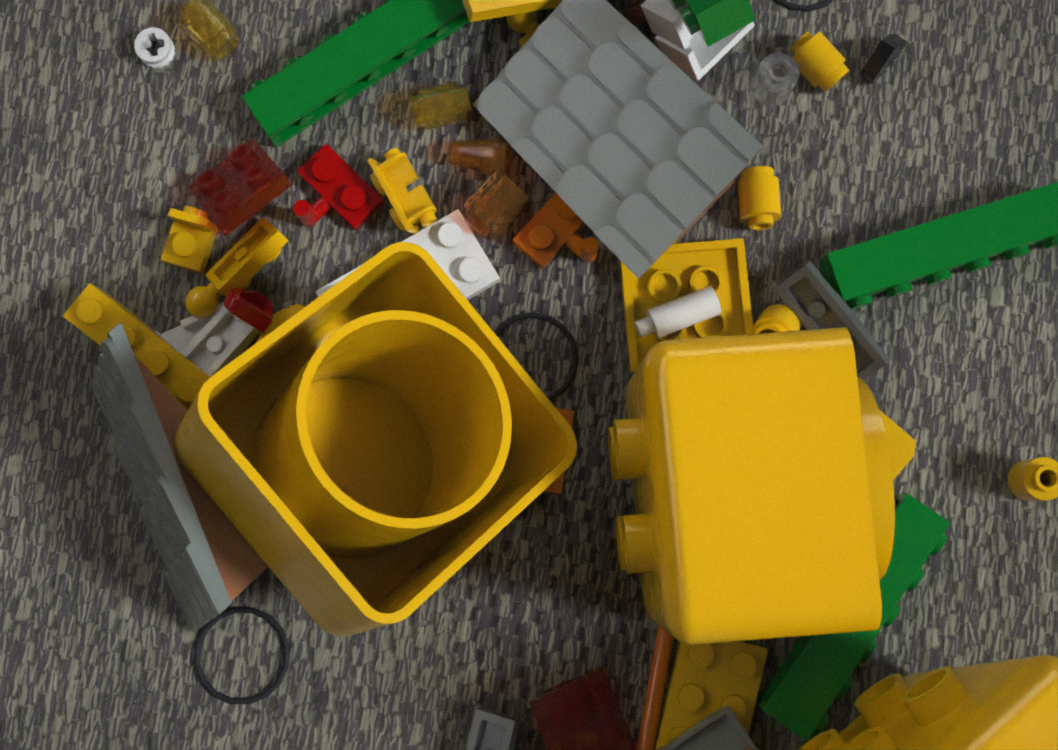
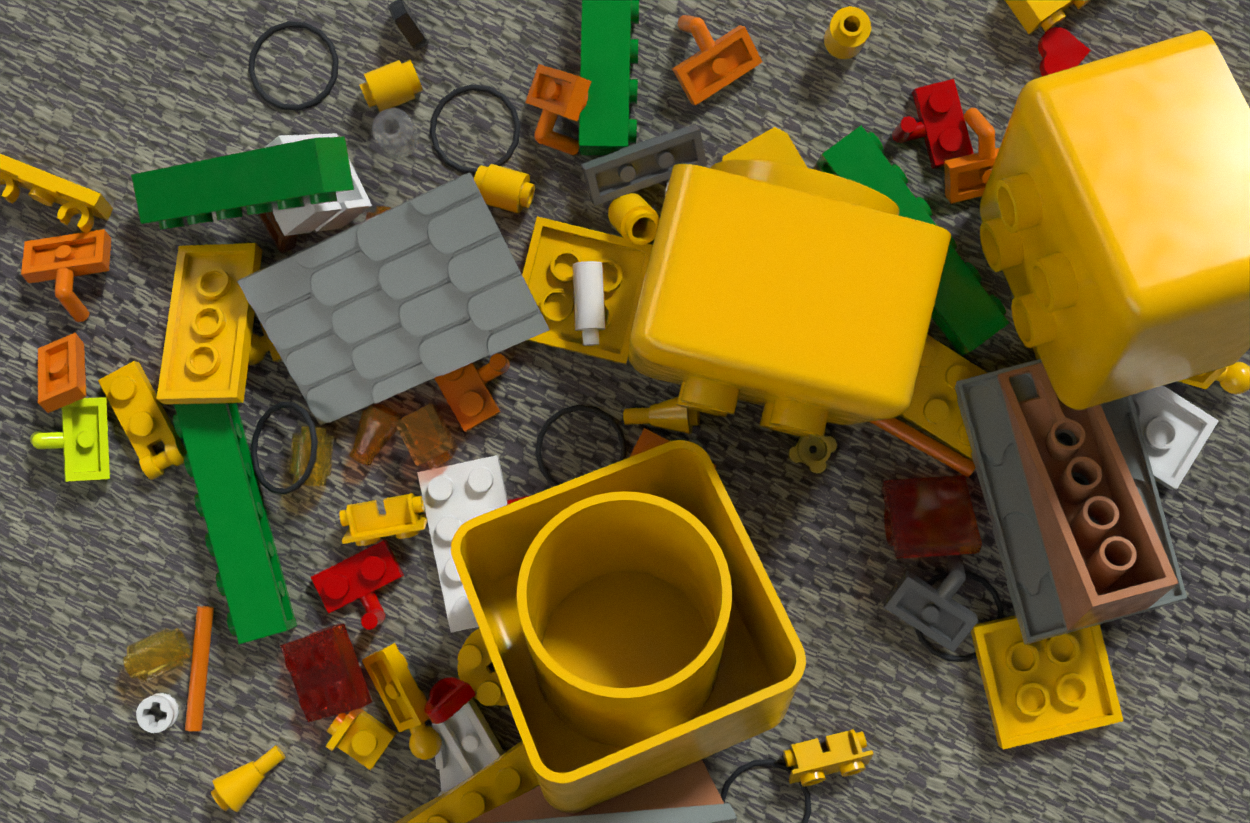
camera: 70 degrees left, 5 degrees up
(107, 141) = (238, 785): none -> yellow cone
(207, 72) = (199, 668): none -> orange piece
(313, 716) = (812, 764): none -> yellow hinge
(436, 104) = (314, 443): none -> black piece
(592, 426) = (664, 415): none -> yellow cone
(600, 593) = (816, 460): none -> light yellow plate
(839, 130) = (452, 94): none -> black piece
(869, 219) = (557, 95): none -> orange plate
(941, 648) = (969, 174): none -> orange plate
(959, 361) = (716, 62): none -> orange plate
(980, 605) = (940, 123): none -> red plate

